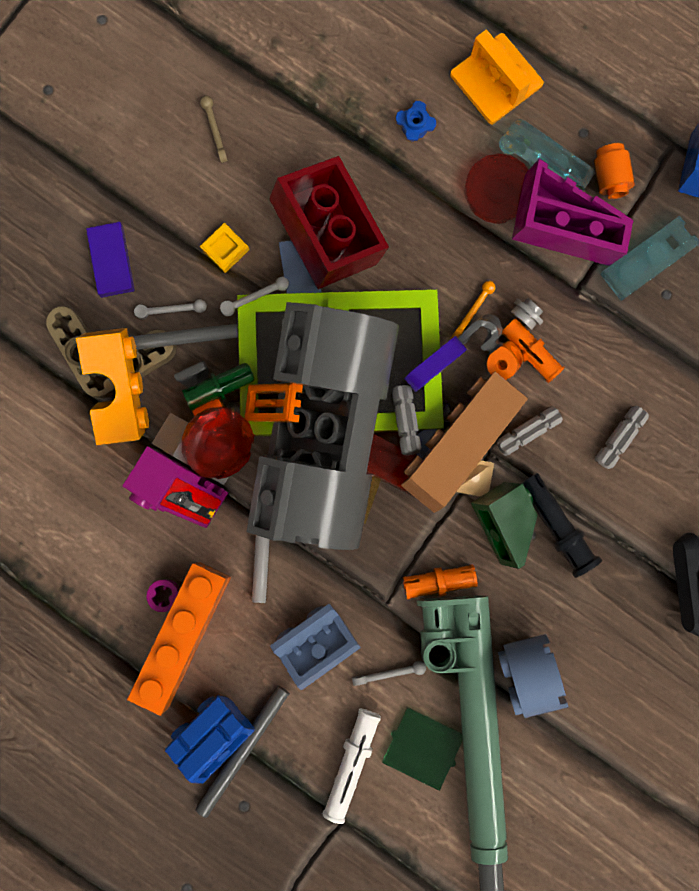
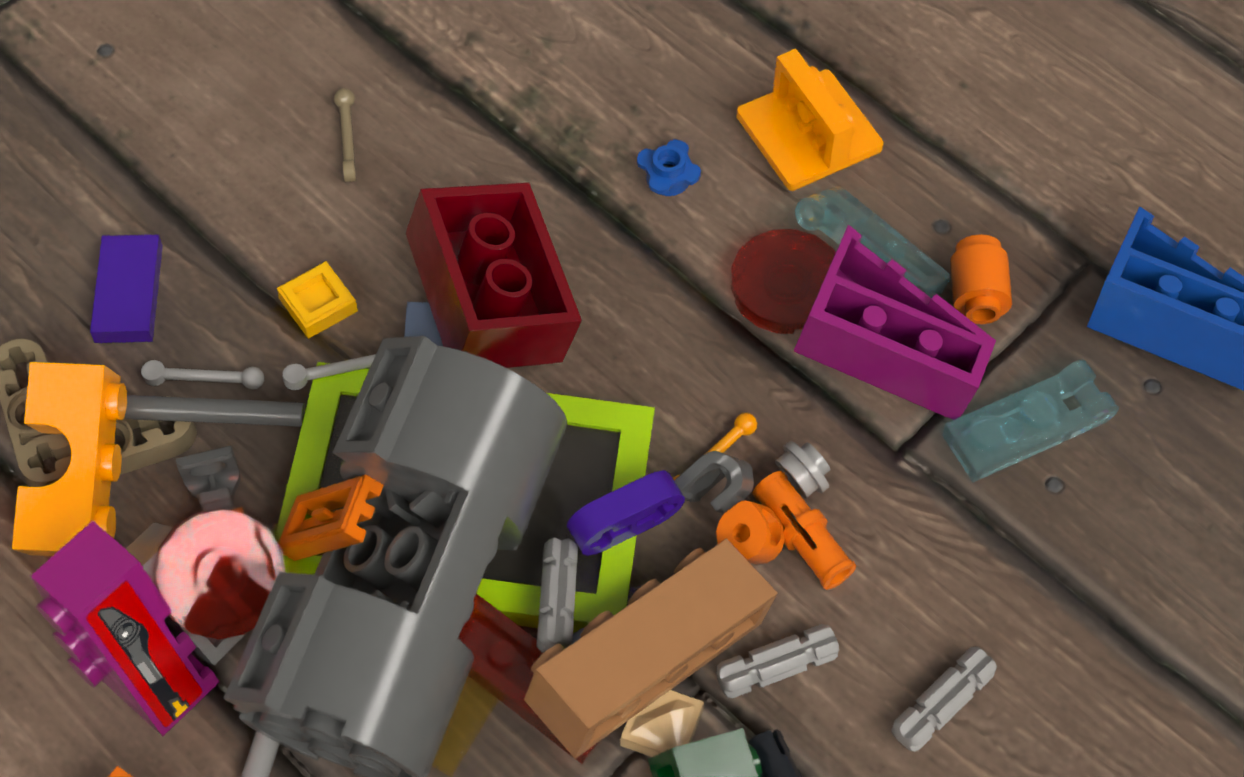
camera: 10 degrees right, 25 degrees down
(218, 386) = (248, 487): dark green axle -> none

